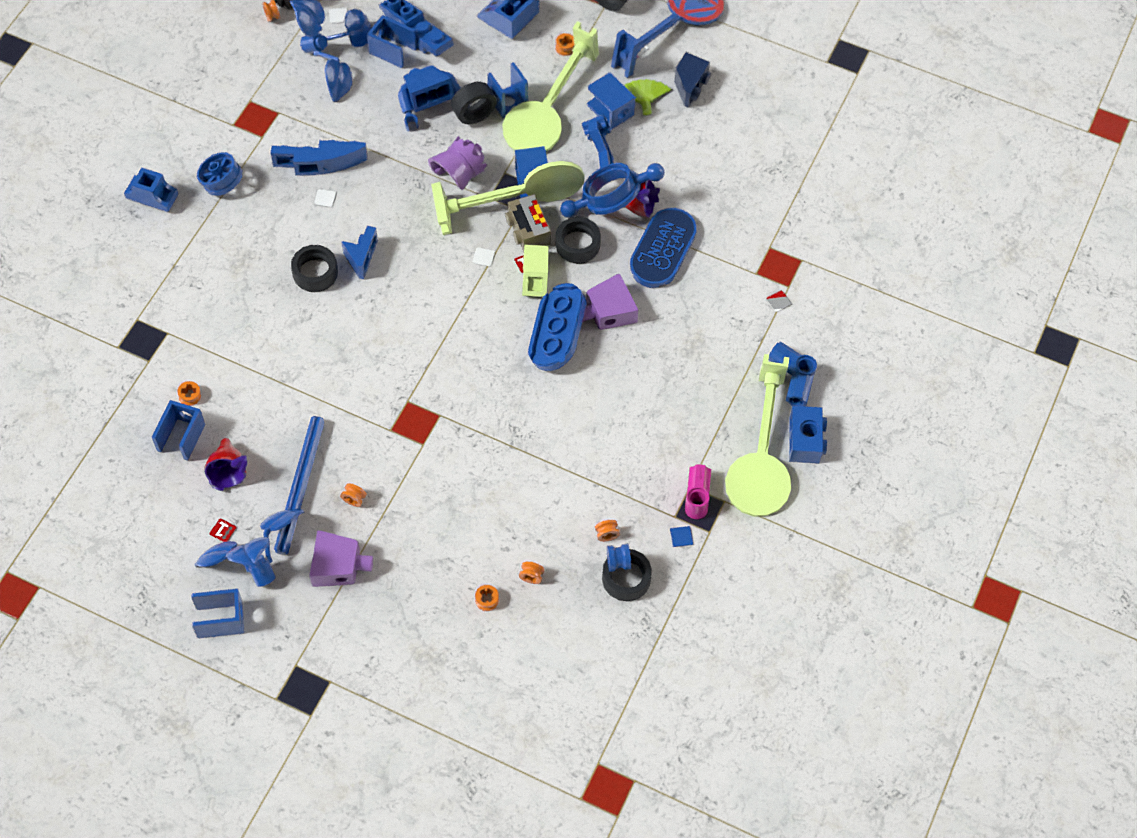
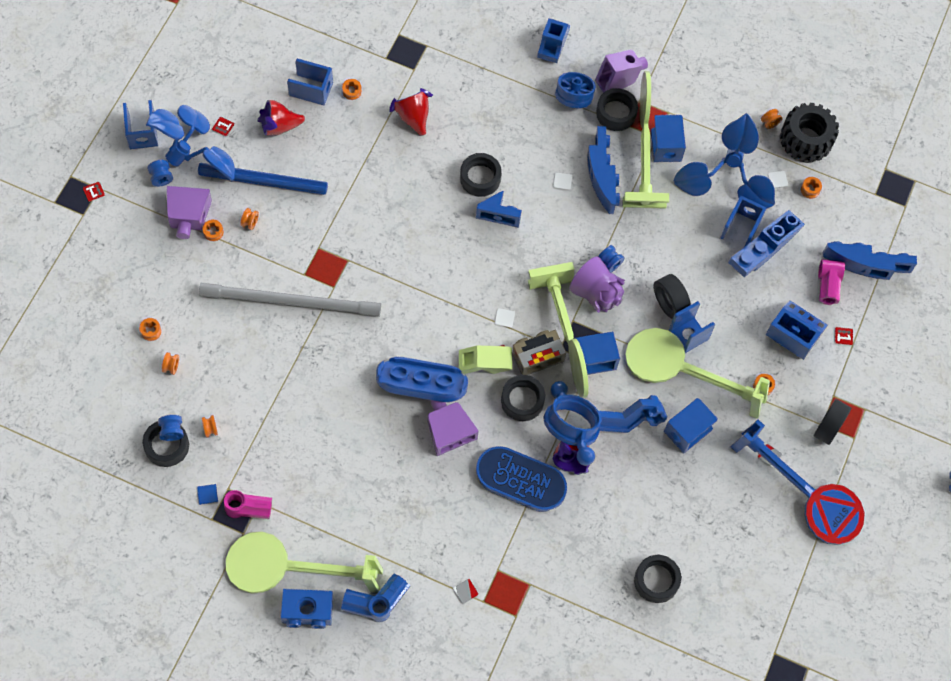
camera: 85 degrees right, 5 degrees up
(199, 123) = (620, 70): none -> medium lavender torso
(227, 326) = (413, 110): none -> red hat
(246, 126) = (622, 96): none -> black tyre
(253, 107) = (645, 197): none -> yellowish green piece
(285, 591) = (160, 173): none -> blue wheel
(288, 96) = (668, 138): none -> blue piece
(299, 670) = (93, 191): none -> red sticker
(369, 539) = (210, 223): none -> orange bush
(421, 156) = (611, 258): none -> blue wheel
(425, 89) = (686, 254): blue torso -> none
(442, 527) = (360, 307): none -> light grey piece
(646, 92) = (712, 462): lime hand -> none
(690, 76) = (729, 504): dark blue slope -> none
(765, 126) = (667, 563): none -> black tyre

